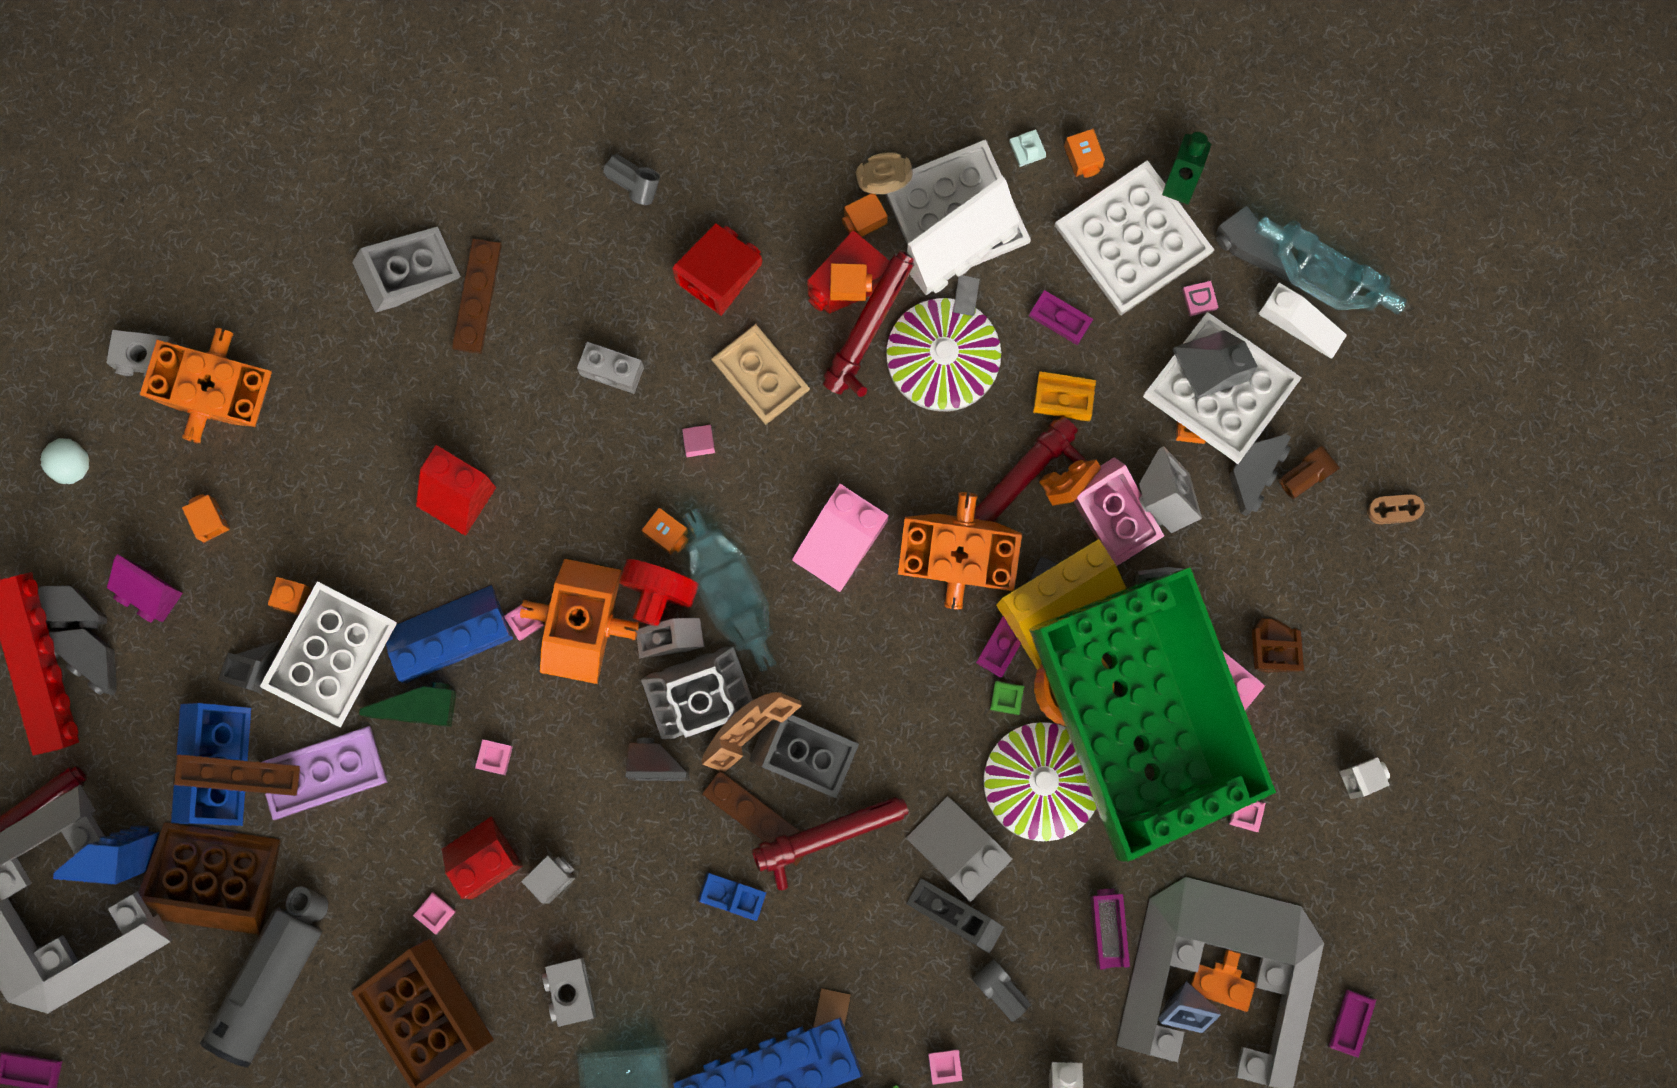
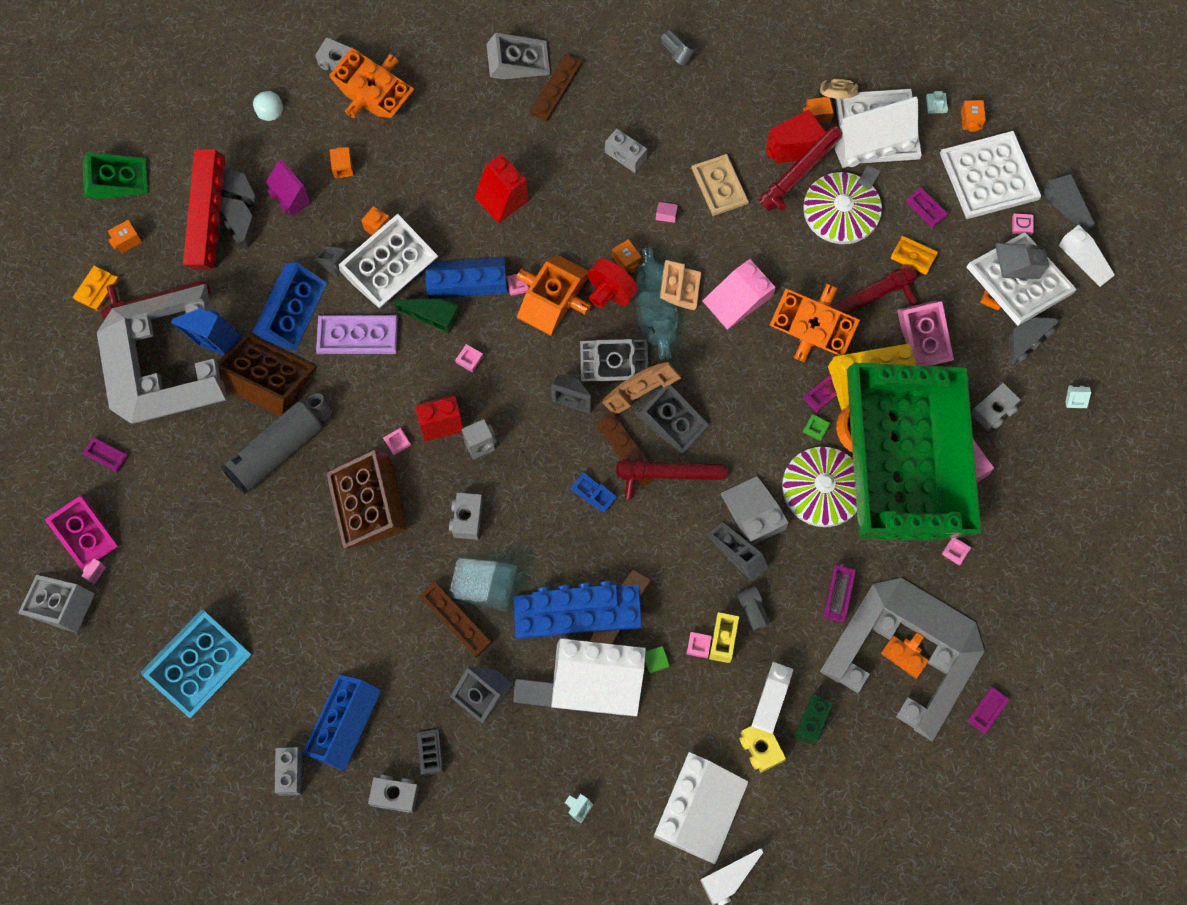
camera: 20 degrees right, 10 degrees down
(236, 775) = (304, 312): reddish brown plate -> none
(670, 637) = (608, 320): light grey slope -> none
(717, 268) = (713, 113): red slope -> none
(754, 551) = (680, 285): none -> light nougat slope
(850, 282) = (796, 135): orange brick -> none
(976, 1049) = (724, 637): none -> light yellow brick
(1070, 484) = (894, 305): orange hinge -> none
(1169, 492) = (965, 330): light grey slope -> none
(1189, 1010) = (877, 662): sand blue slope -> none
(1192, 155) = (1039, 138): dark green torso -> none
(1245, 573) = (1001, 398): none -> light grey brick
(1276, 647) = (1008, 452): reddish brown slope -> none
(1313, 469) = (1067, 348): reddish brown piece -> none
(1327, 272) = (1111, 229): clear light blue plate -> none
(1346, 537) = (1078, 397): none -> light aqua tile
(1365, 778) = (1045, 550): white slope -> none
(1395, 502) = (1117, 386): medium nougat beam -> none

